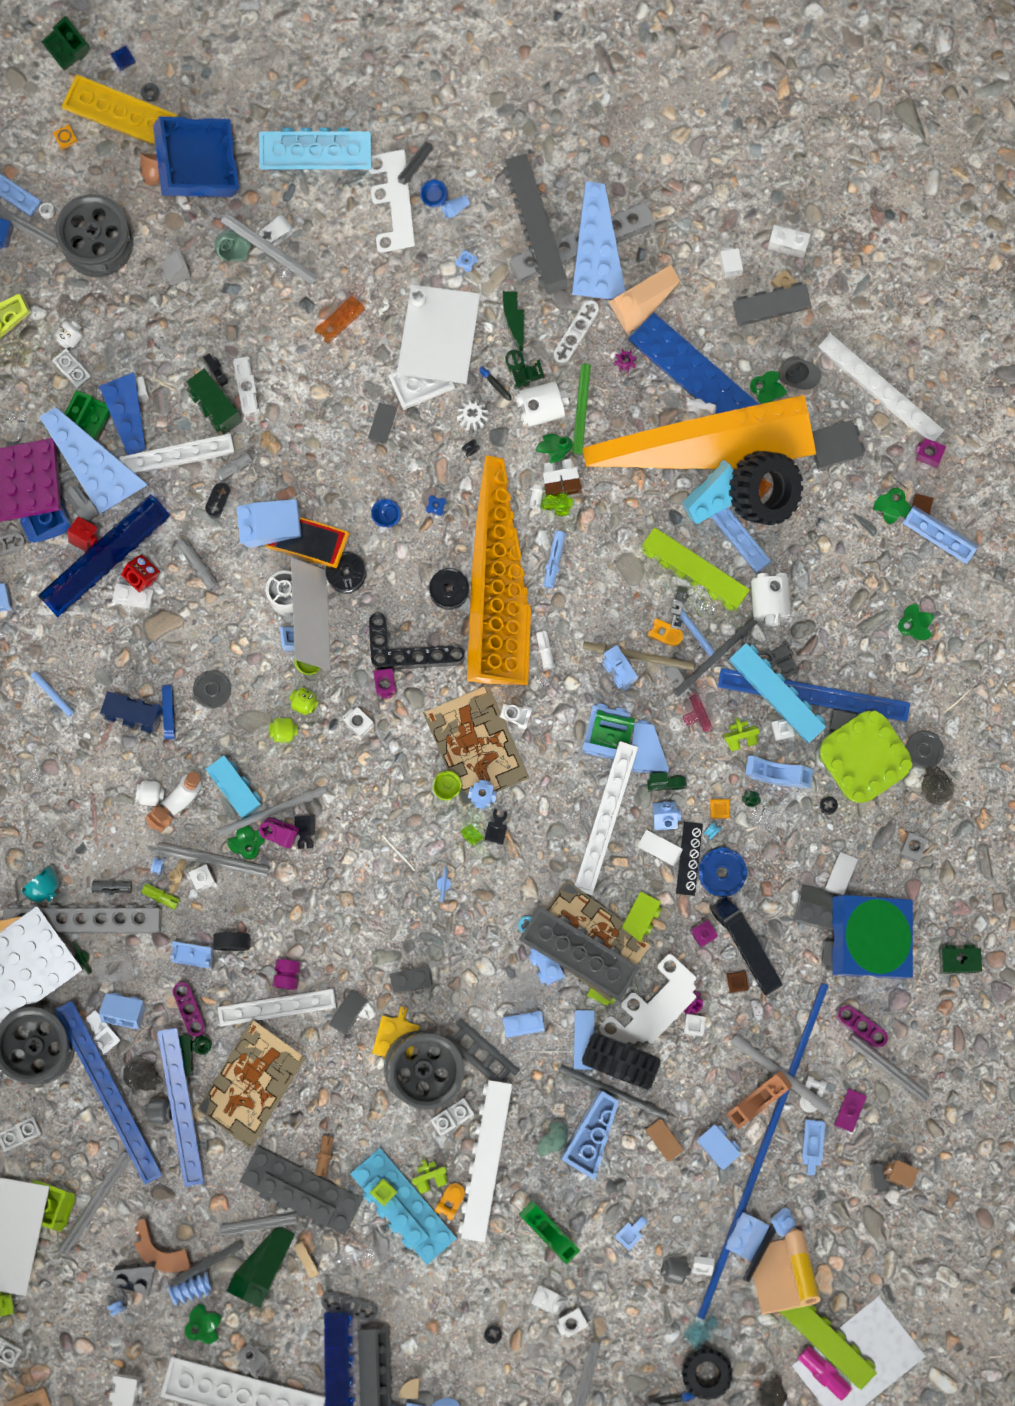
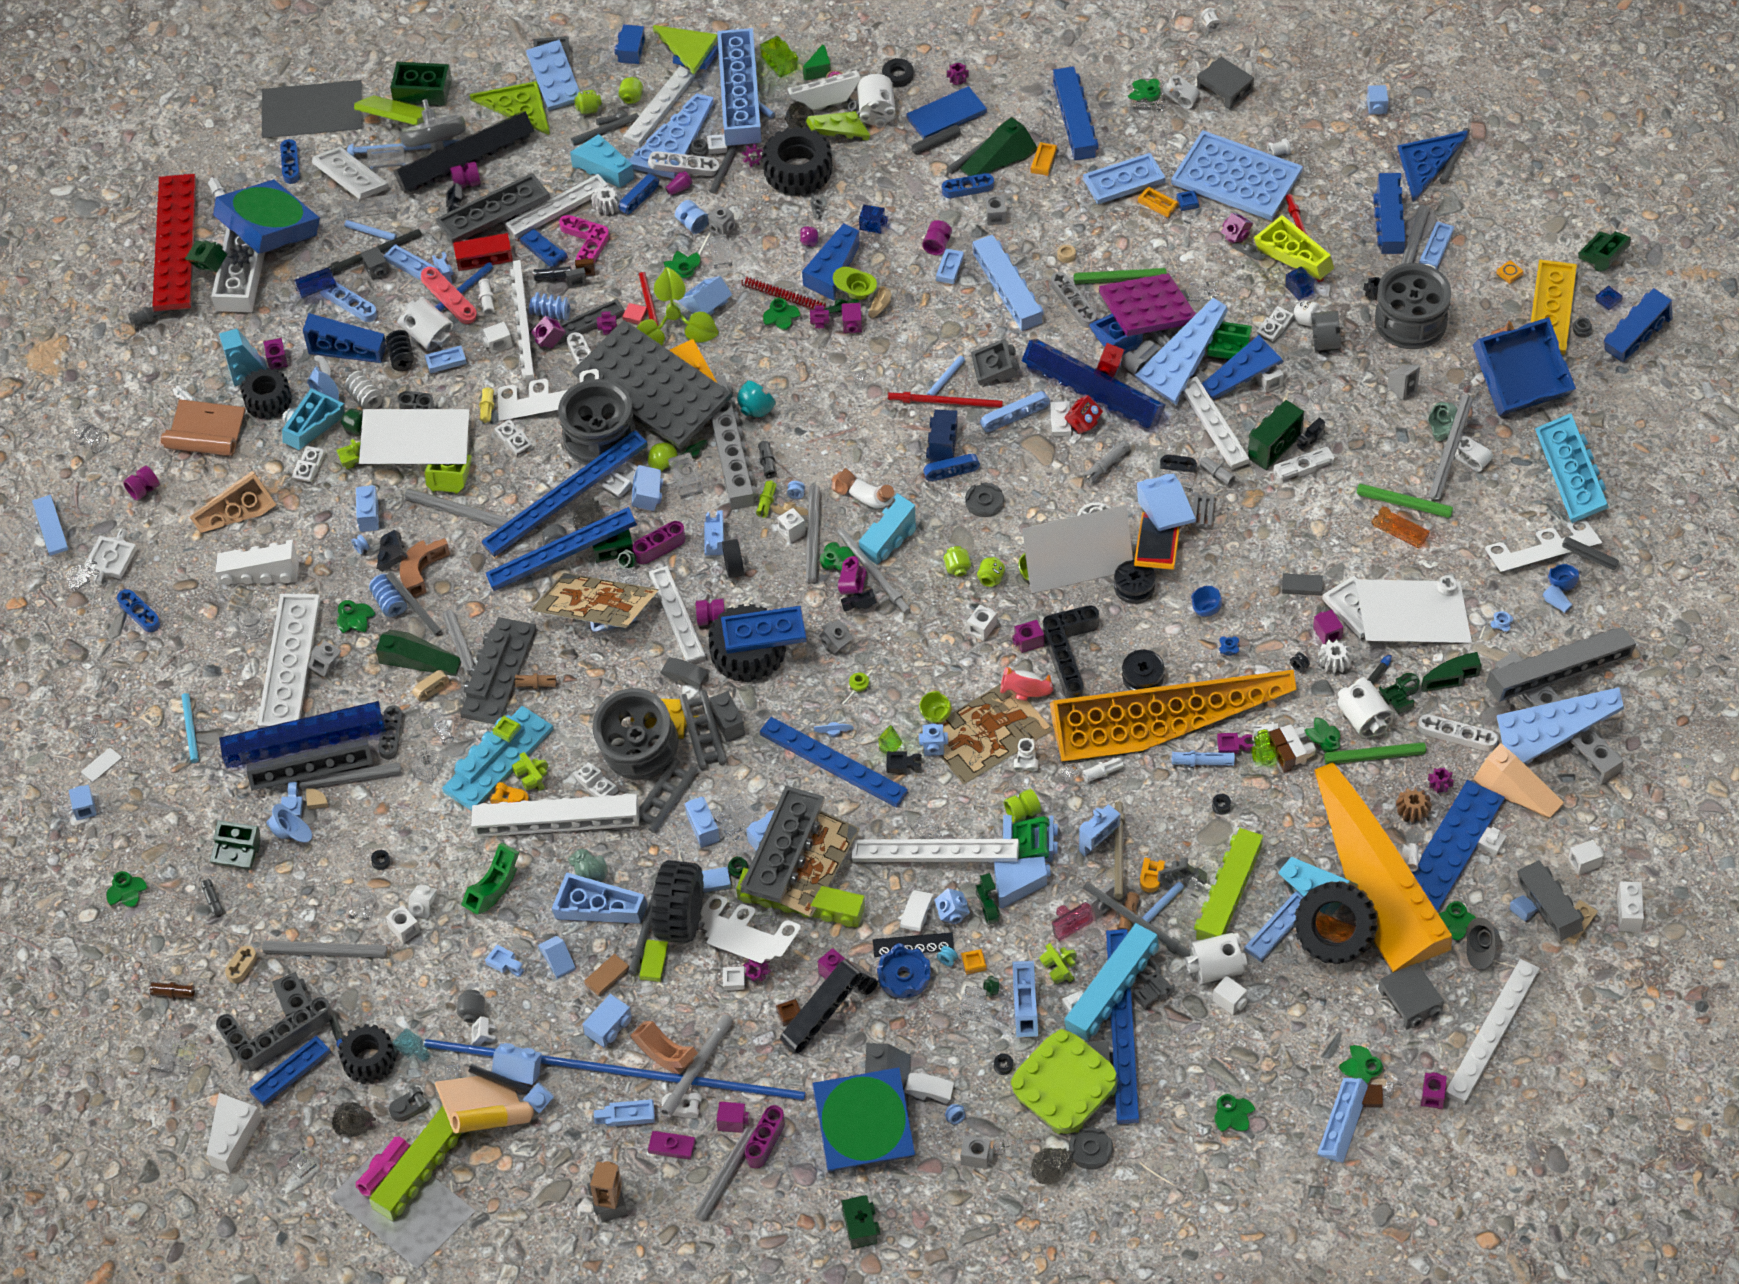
camera: 80 degrees right, 25 degrees down
(24, 327) = (1299, 283): none -> clear blue brick
(51, 642) = (995, 362): none -> dark grey plate
(56, 269) = (1371, 287): none -> black gear
(69, 735) = (907, 397): none -> red bar
(75, 1295) = (367, 508): none -> light blue brick
(82, 989) = (659, 455): none -> lime hair
(99, 322) = (1326, 330): none -> dark grey brick
(115, 636) = (1015, 412): none -> light blue beam
(149, 793) = (866, 467): white head -> none
(167, 40) = (1639, 325): none -> blue wedge
(276, 483) = (1203, 498): none -> light grey tile
(310, 307) = (1404, 500): none -> bright green axle
(334, 972) = (744, 664): none -> black tyre
(335, 927) = (763, 629): none -> blue tile
(344, 861) = (835, 636): none -> light grey brick
(392, 1324) = (351, 775): none -> light grey axle
(396, 856) = (859, 686): none -> lime plate
(428, 997) = (698, 739): none -> dark grey bar
(438, 413) = (1328, 626): none -> magenta brick
(440, 698) = (1025, 684): none -> coral animal
(479, 891) = (833, 762): none -> blue plate
(544, 531) = (1232, 743): none -> magenta plate
(571, 995) = (737, 862): none -> dark green plate
(572, 730) = (1024, 805): none -> lime wheel
(603, 549) = (1221, 798): none -> black bush
(634, 1183) = (557, 956): none -> light blue slope
(645, 397) = (1413, 805): none -> medium nougat gear
(660, 1096) = (653, 960): none -> lime tile
(694, 335) = (1492, 840): none -> white tile
(698, 660) = (1131, 903): none -> medium nougat pin
(765, 1349) = (402, 1110): none -> dark grey plate
(766, 329) = (1523, 907): none -> light blue slope
(804, 596) = (1230, 995): none -> white brick
(837, 1051) = (732, 1117): none -> magenta brick
(870, 857) = (955, 1113): none -> light blue plate

